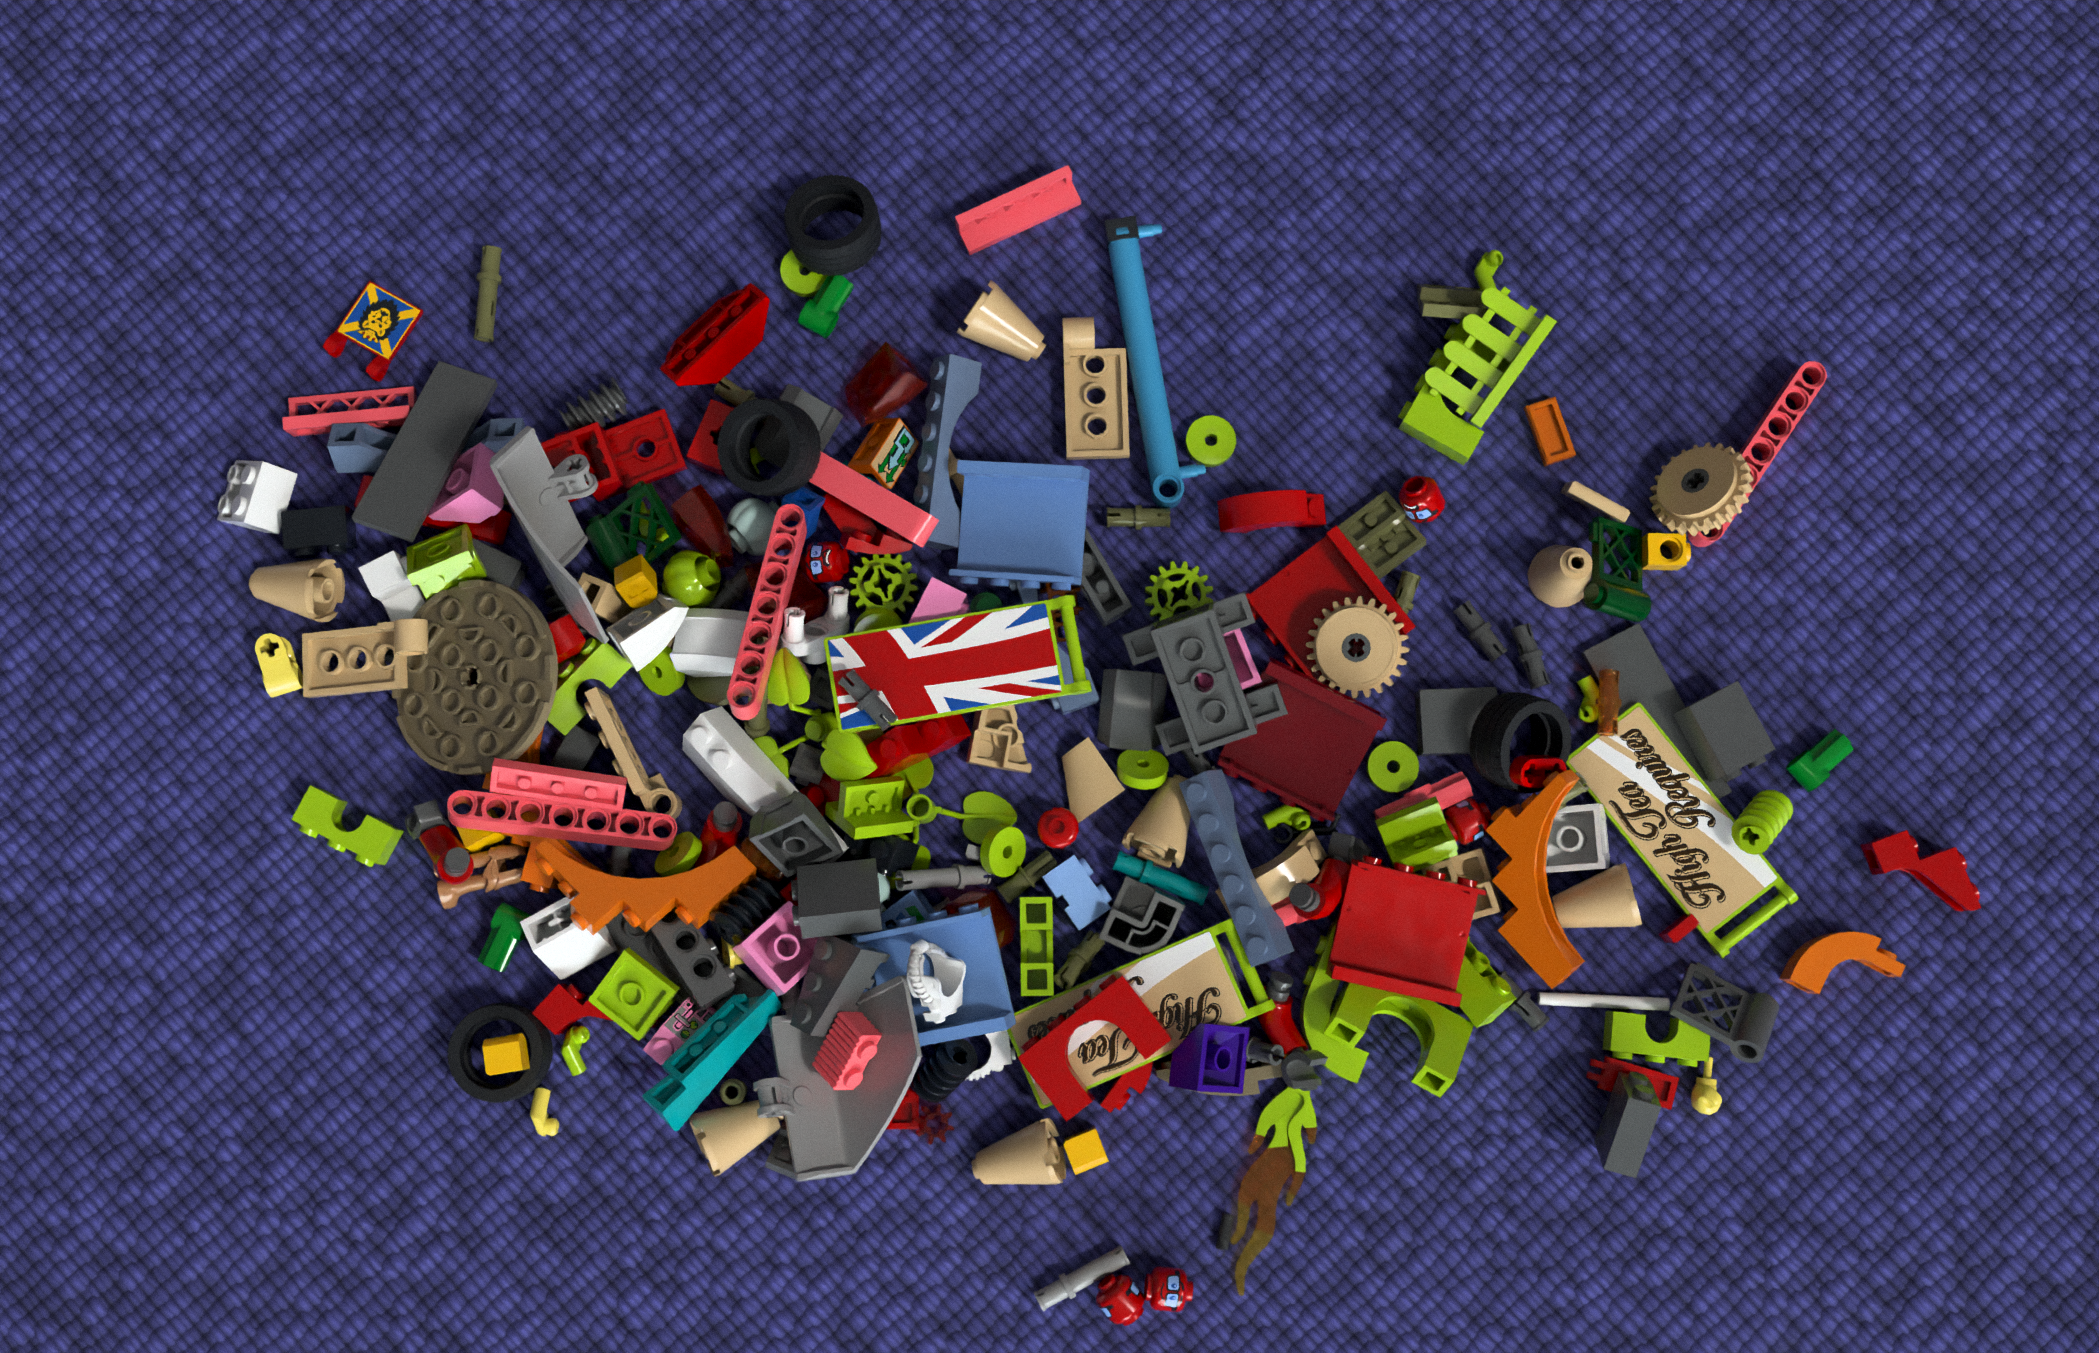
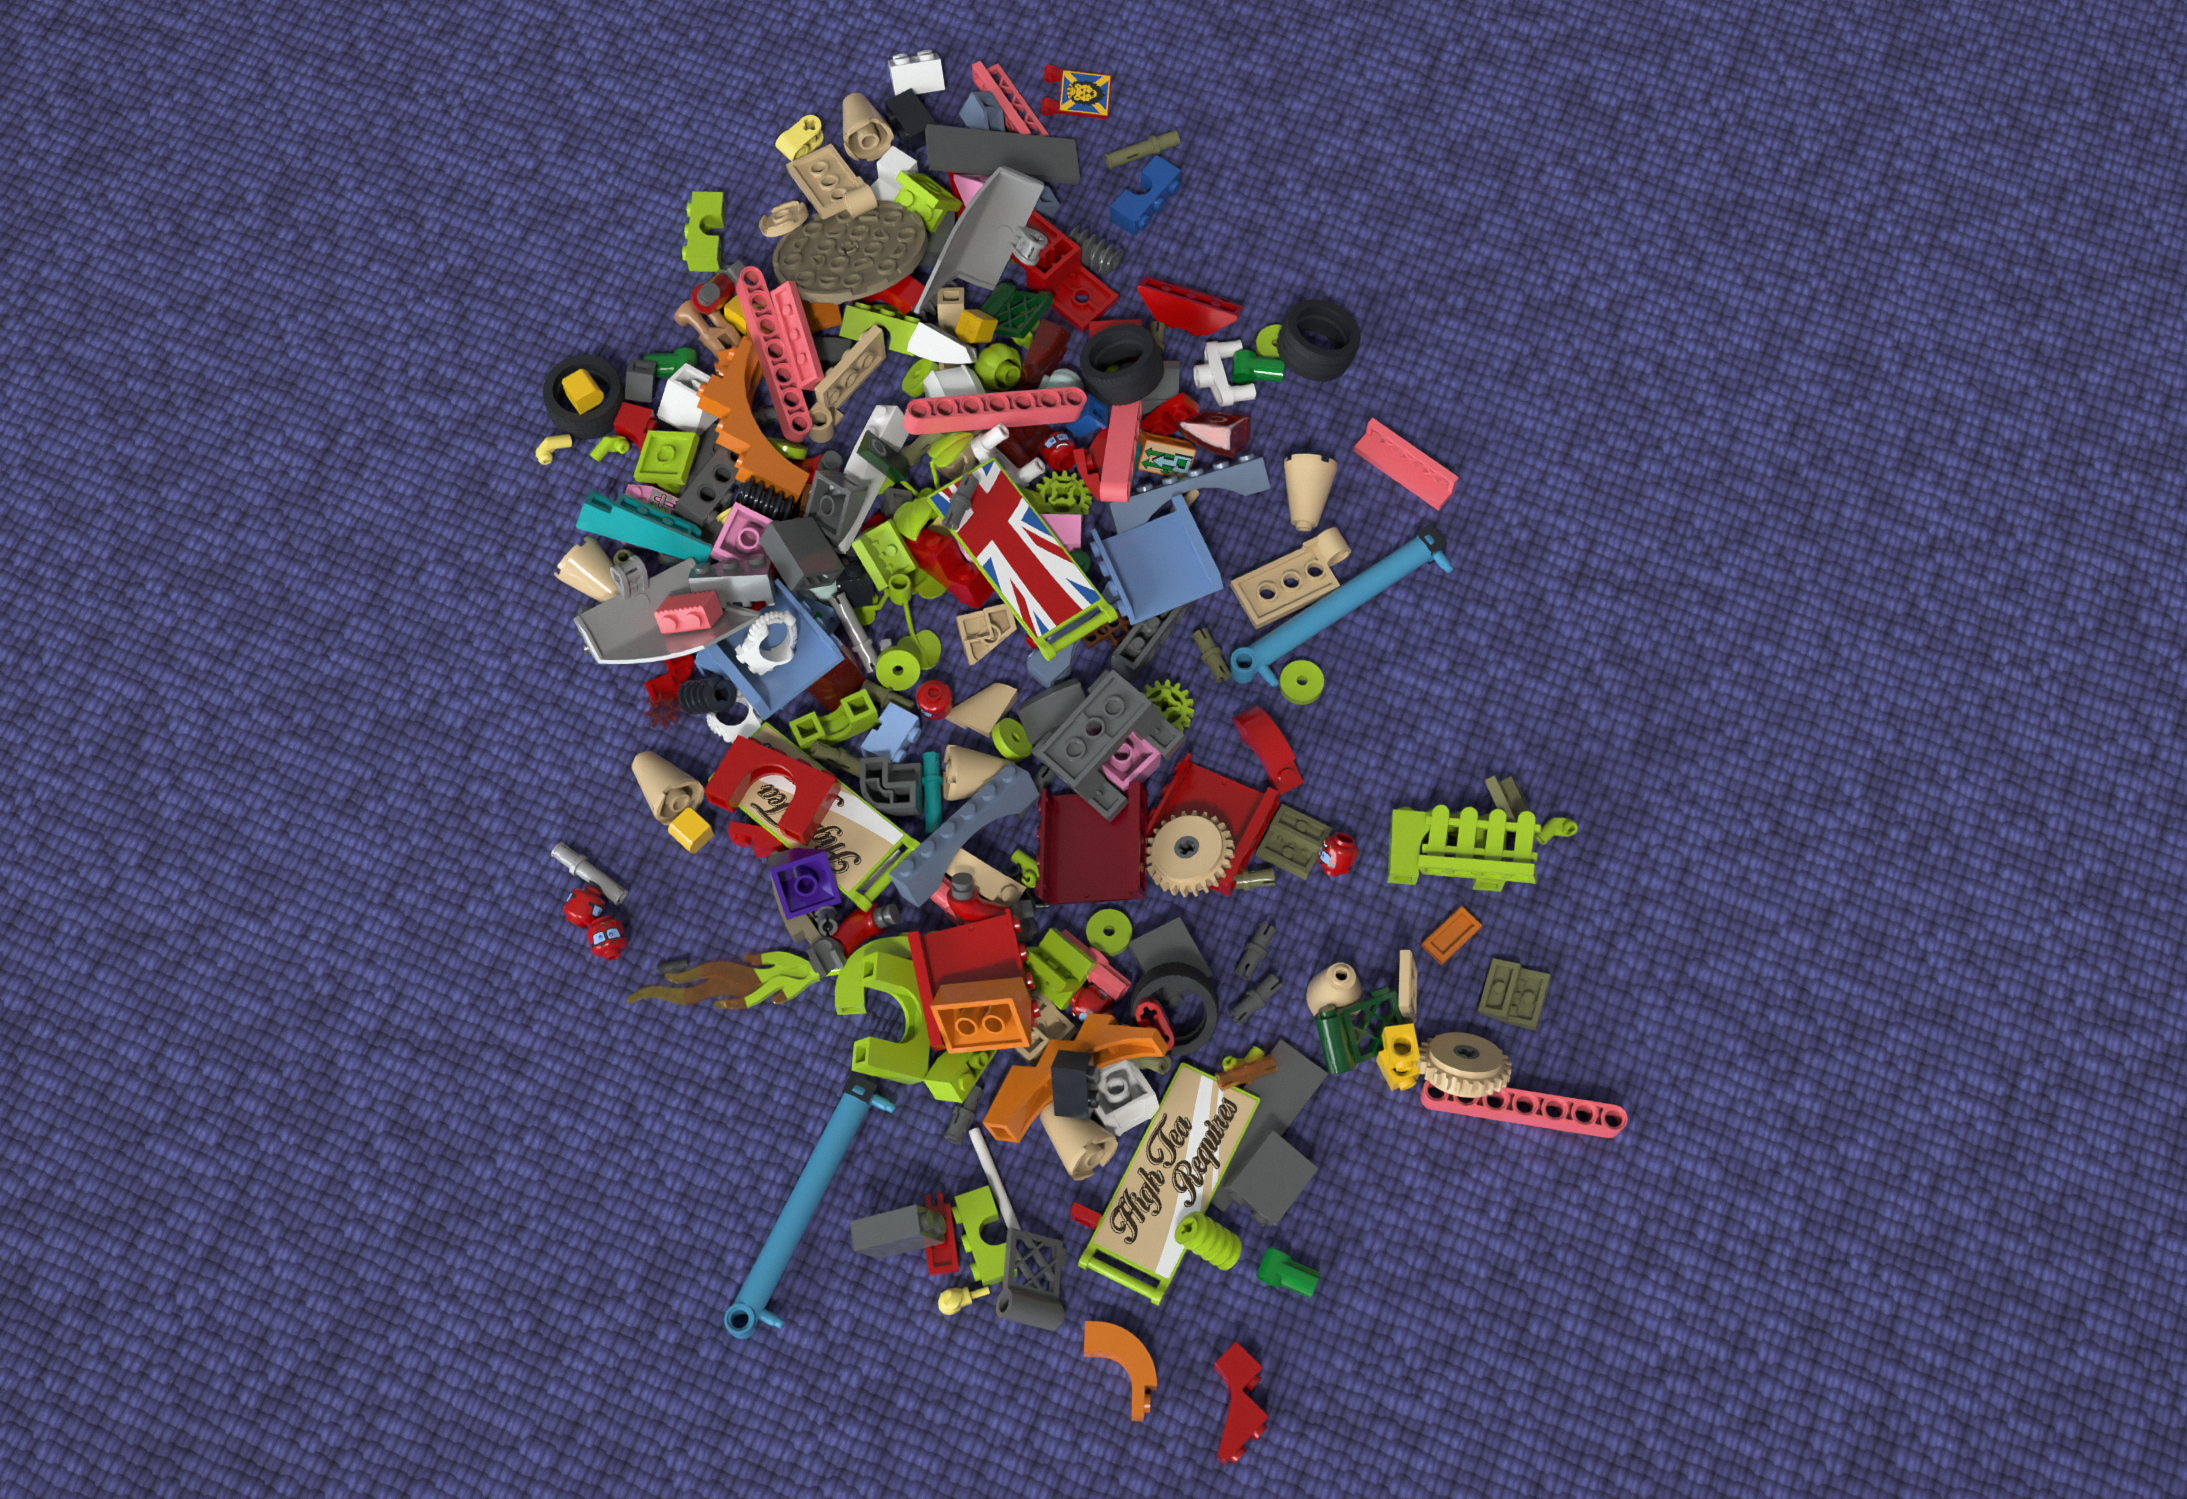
camera: 65 degrees right, 15 degrees down
(379, 731) = (783, 219): none -> tan tile
(511, 981) = (640, 381): none -> dark grey brick
(563, 341) = (1135, 211): none -> blue arch
(759, 756) = (883, 457): none -> dark green slope
(813, 355) = (1213, 374): none -> white connector
(844, 429) = (1166, 416): none -> red slope
(1454, 938) = (983, 1015): none -> orange slope
(1546, 1207) = (857, 1099): none -> dark azure piece
(1564, 879) = (1074, 1084): none -> black brick
(1637, 402) = (1514, 994): none -> olive slope
(1647, 545) = (1404, 1035): none -> yellow brick

